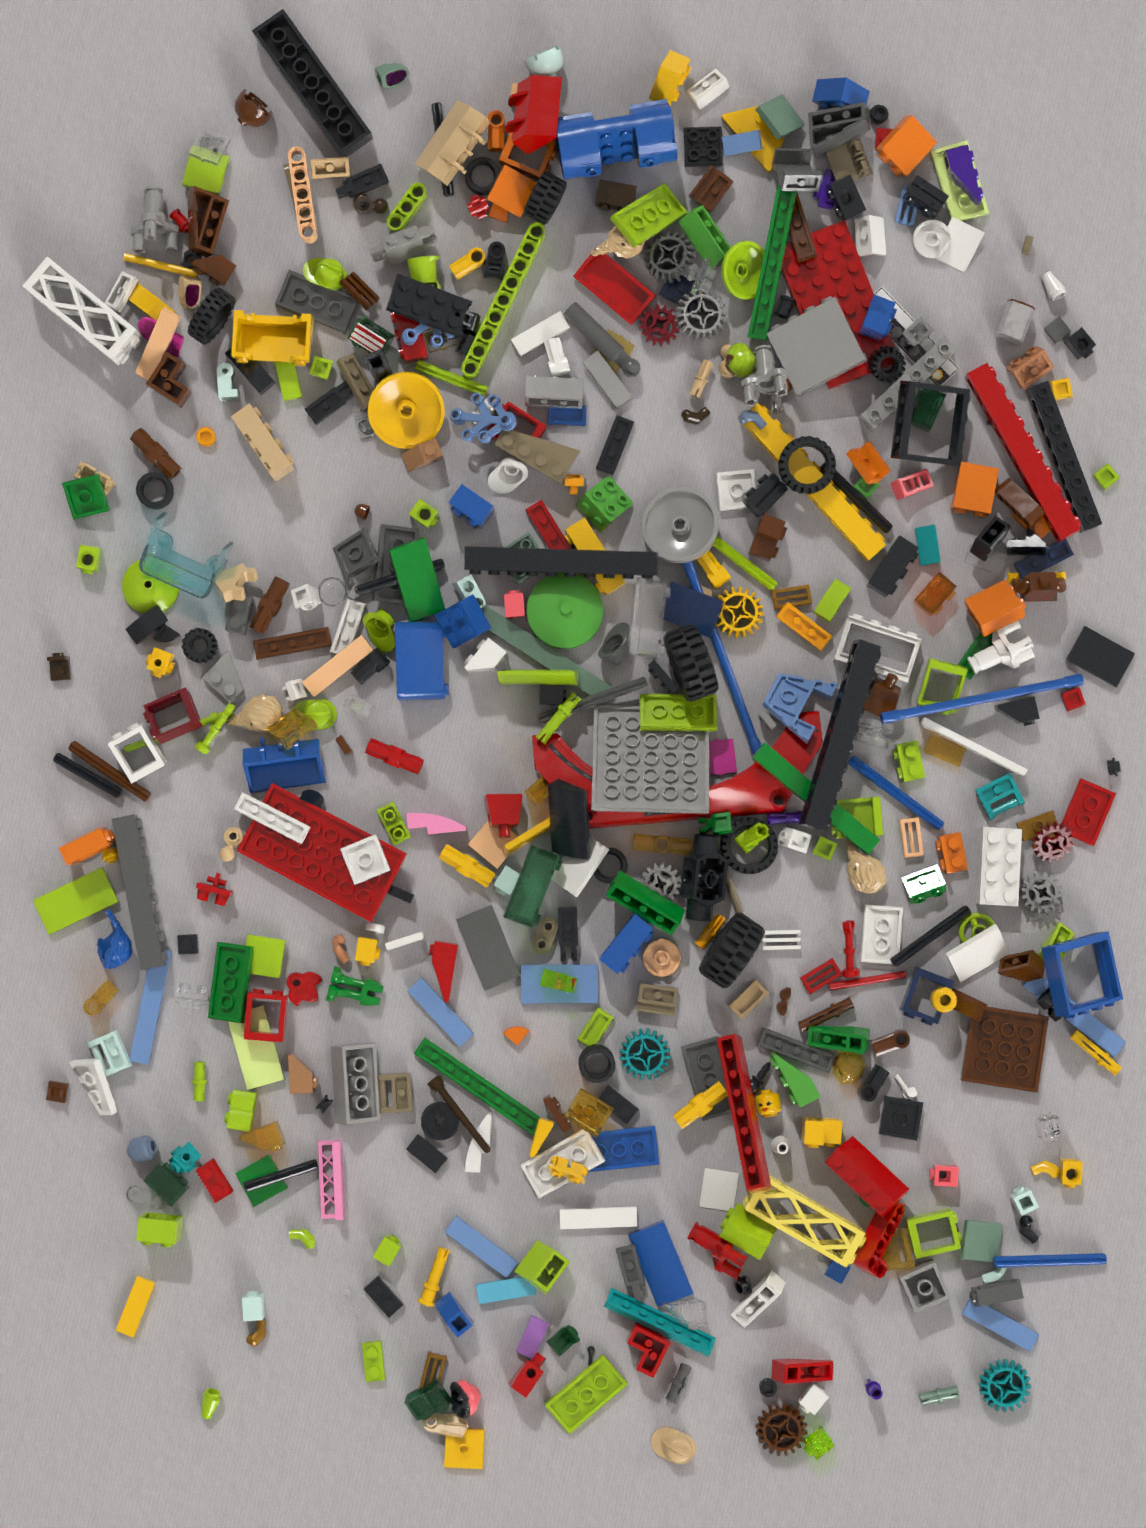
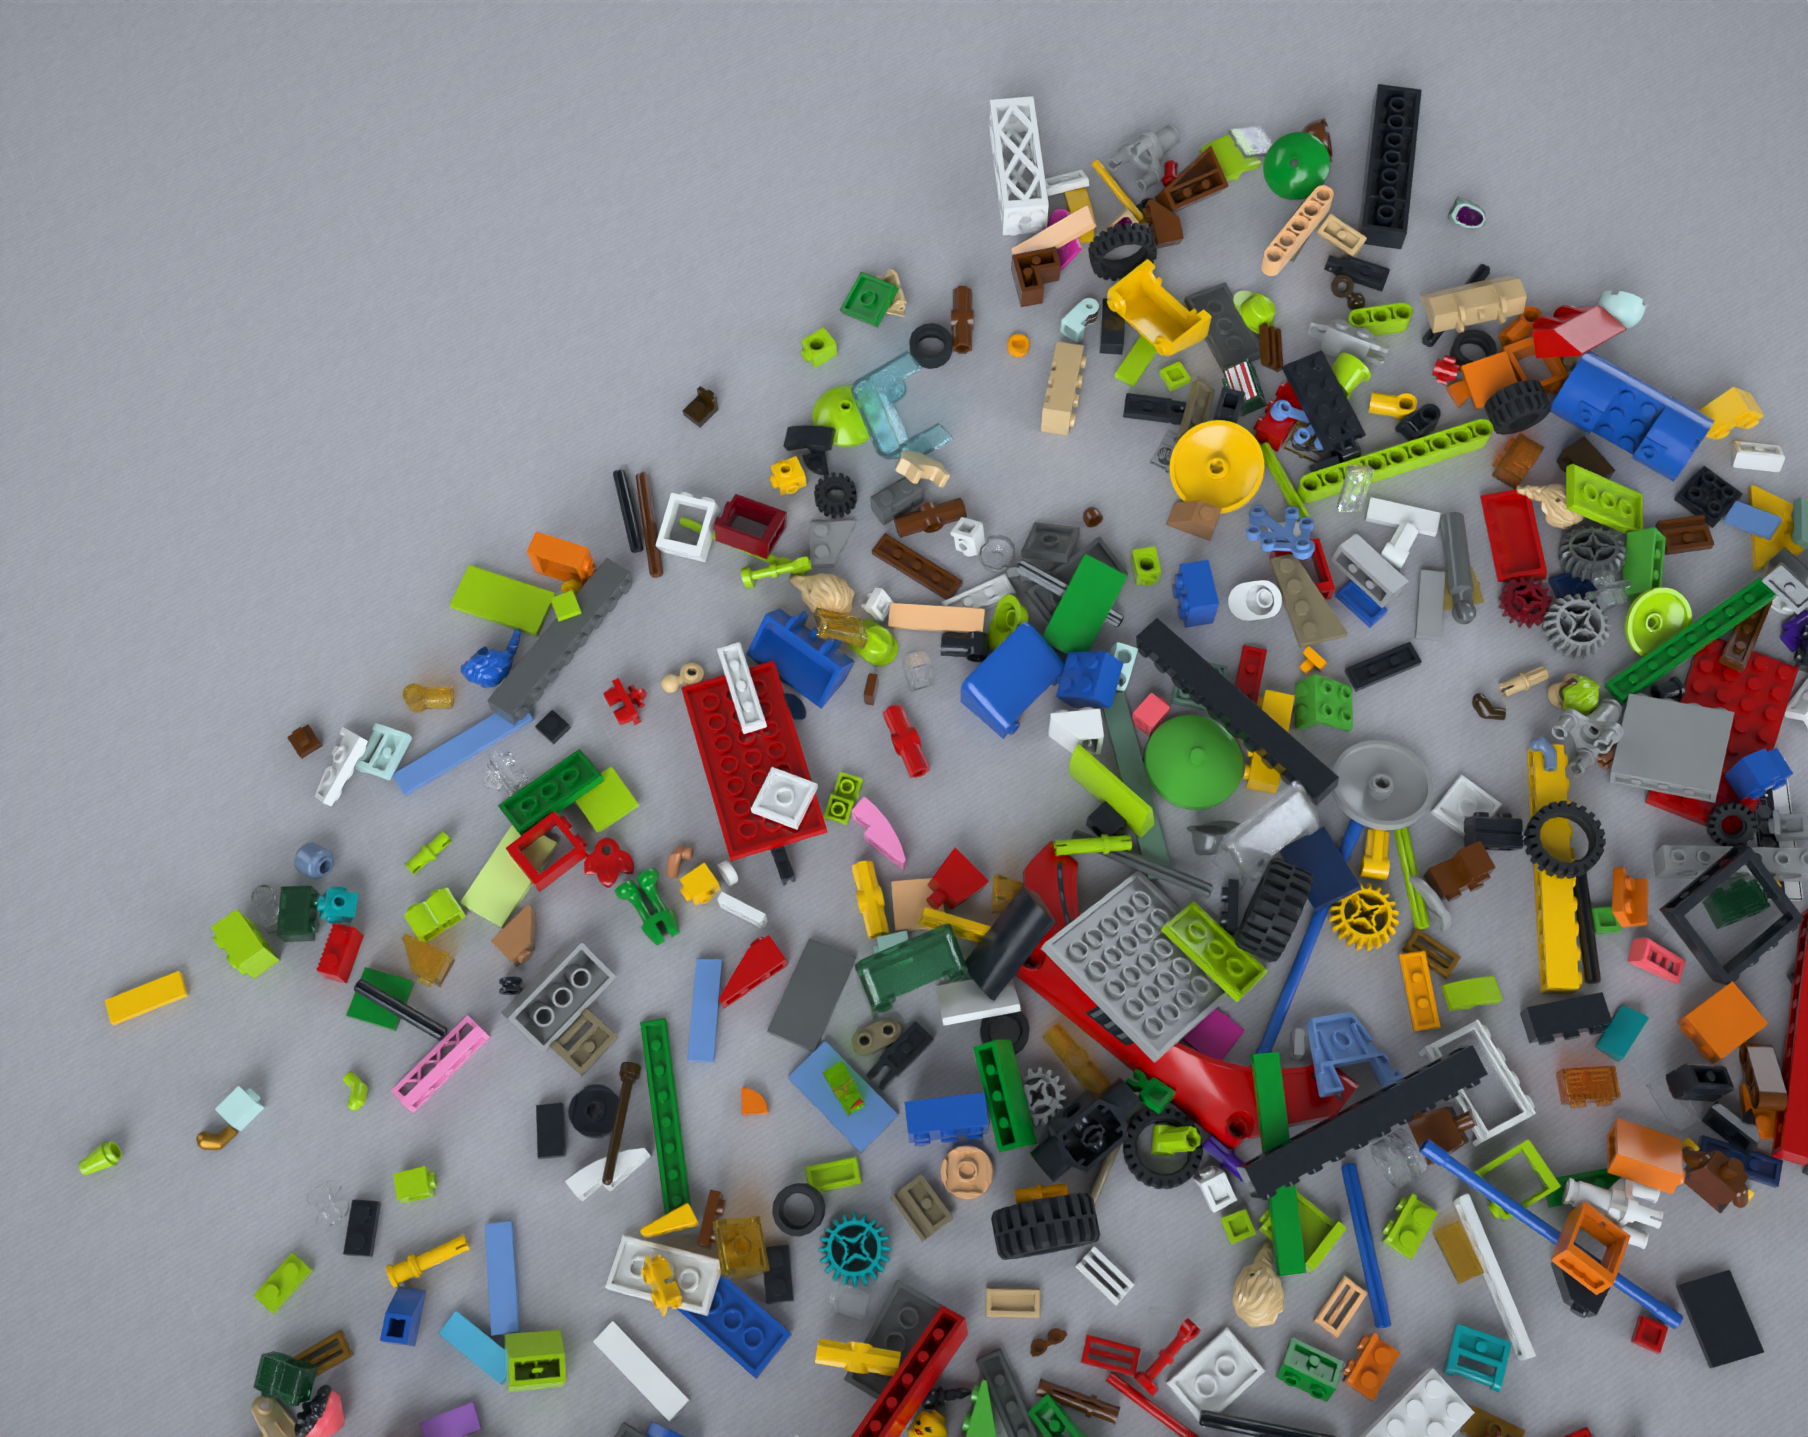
camera: 45 degrees right, 20 degrees down
(122, 872) = (565, 605): none -> lime tile
(260, 130) = (1297, 181): none -> green dish
(499, 347) = (1354, 488): none -> clear plate
(574, 231) = (1517, 461): none -> clear orange brick
(771, 570) = (1436, 909): none -> light grey piece
(1011, 705) = (1580, 1265): none -> orange window

